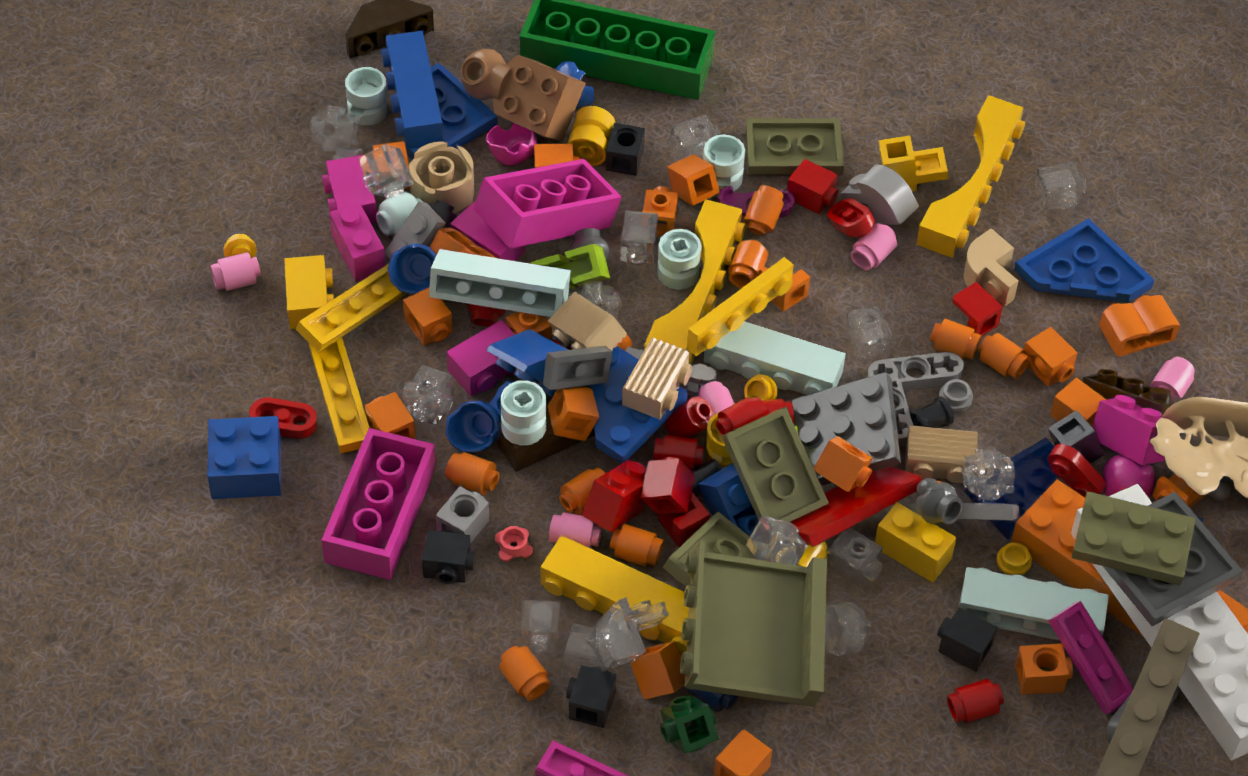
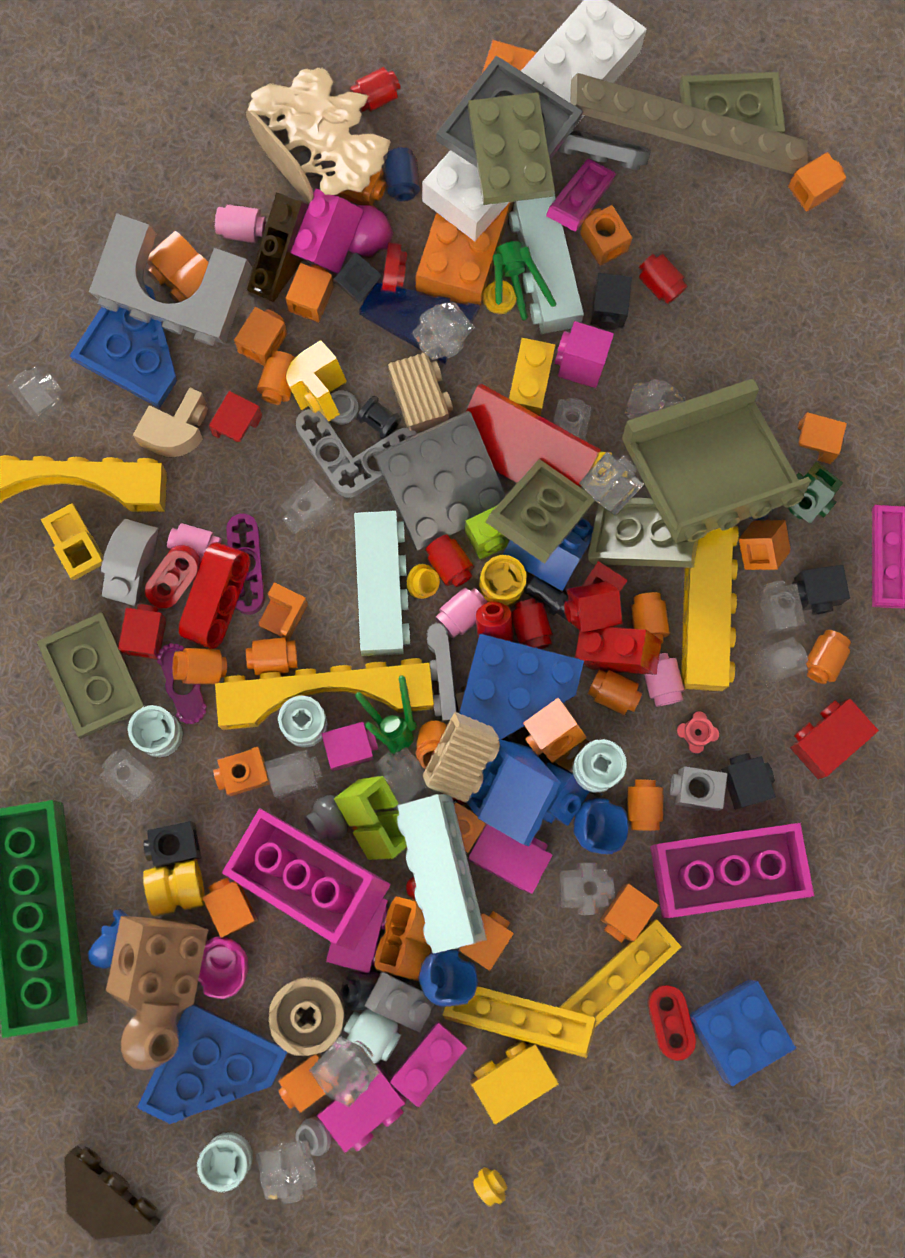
camera: 120 degrees left, 25 degrees up
(235, 272) = (523, 1173): bright pink brick -> none
(413, 89) = (200, 1109): blue brick -> none
(447, 641) = (833, 737): none -> red brick
(577, 367) = (517, 730): dark grey plate -> none
(617, 631) = (772, 579): clear brick -> none
(639, 318) = (394, 730): none -> green plant
(641, 281) = (349, 746): none -> dark pink brick
(656, 379) = (498, 657): tan brick -> none
(693, 179) = (189, 754): orange brick -> none
(740, 306) = (342, 618): yellow plate -> none
(740, 414) = (500, 561): red brick -> none
(820, 238) = (214, 595): none -> red beam
(844, 464) = (498, 456): orange brick -> none
(853, 272) = (252, 537): none -> magenta beam
(917, 585) = (583, 354): none -> dark pink brick
(938, 502) = (503, 353): dark grey animal -> none
(955, 338) = (278, 427): orange brick -> none
(984, 511) = (483, 343): light grey tile -> none
(989, 372) = (313, 377): none -> yellow brick
(1041, 565) = (511, 259): none -> green plant
(1133, 263) = (205, 313): none -> light grey arch

